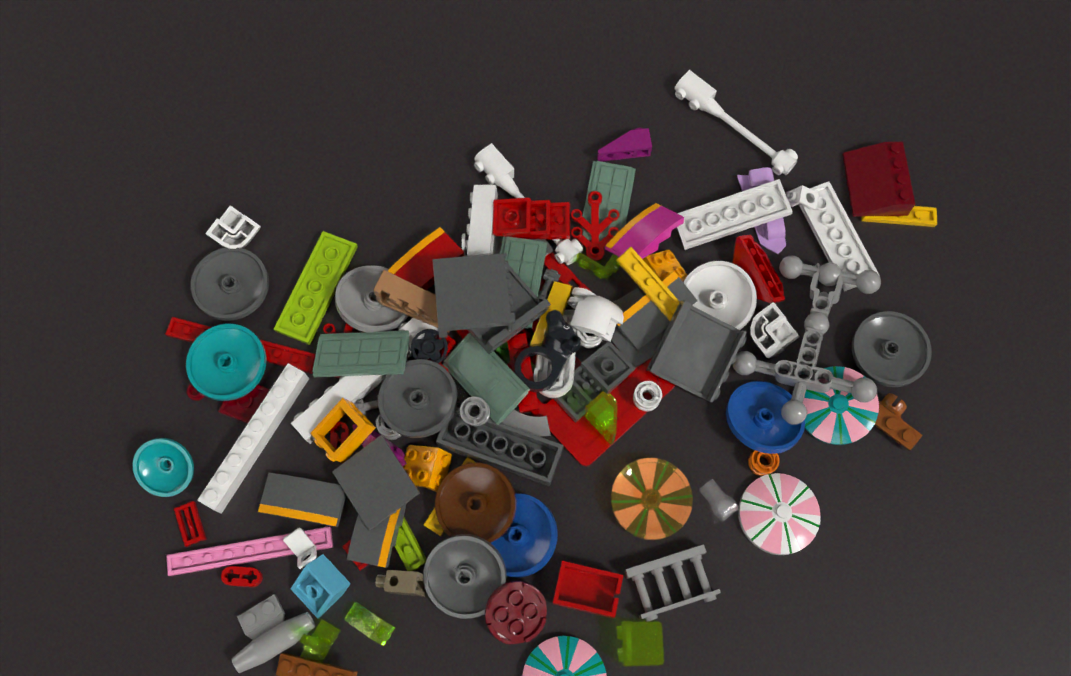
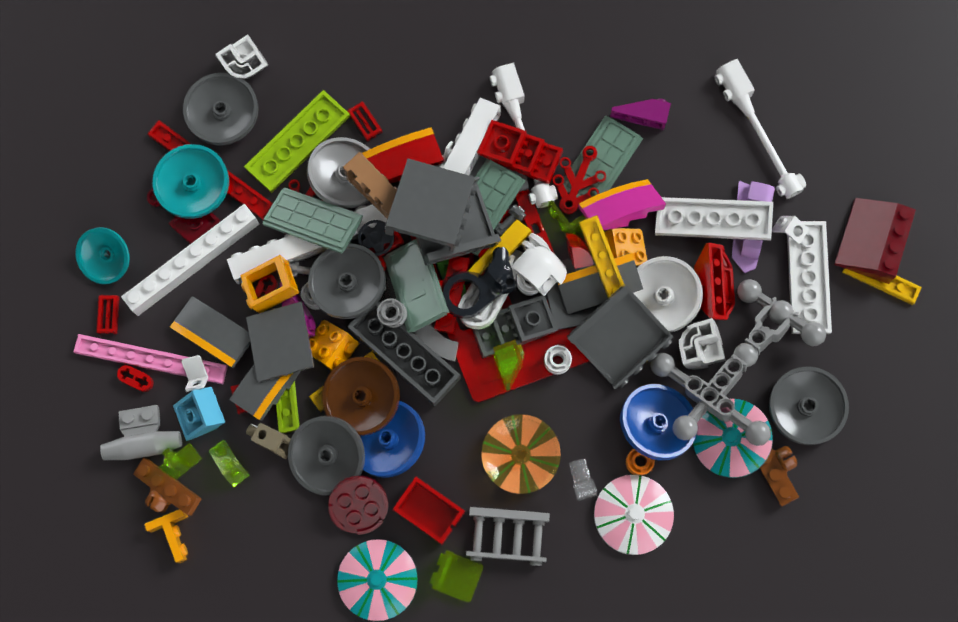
camera: 25 degrees right, 5 degrees up
(385, 254) = (372, 133): none -> red tile
(623, 289) = (578, 251): none -> red brick

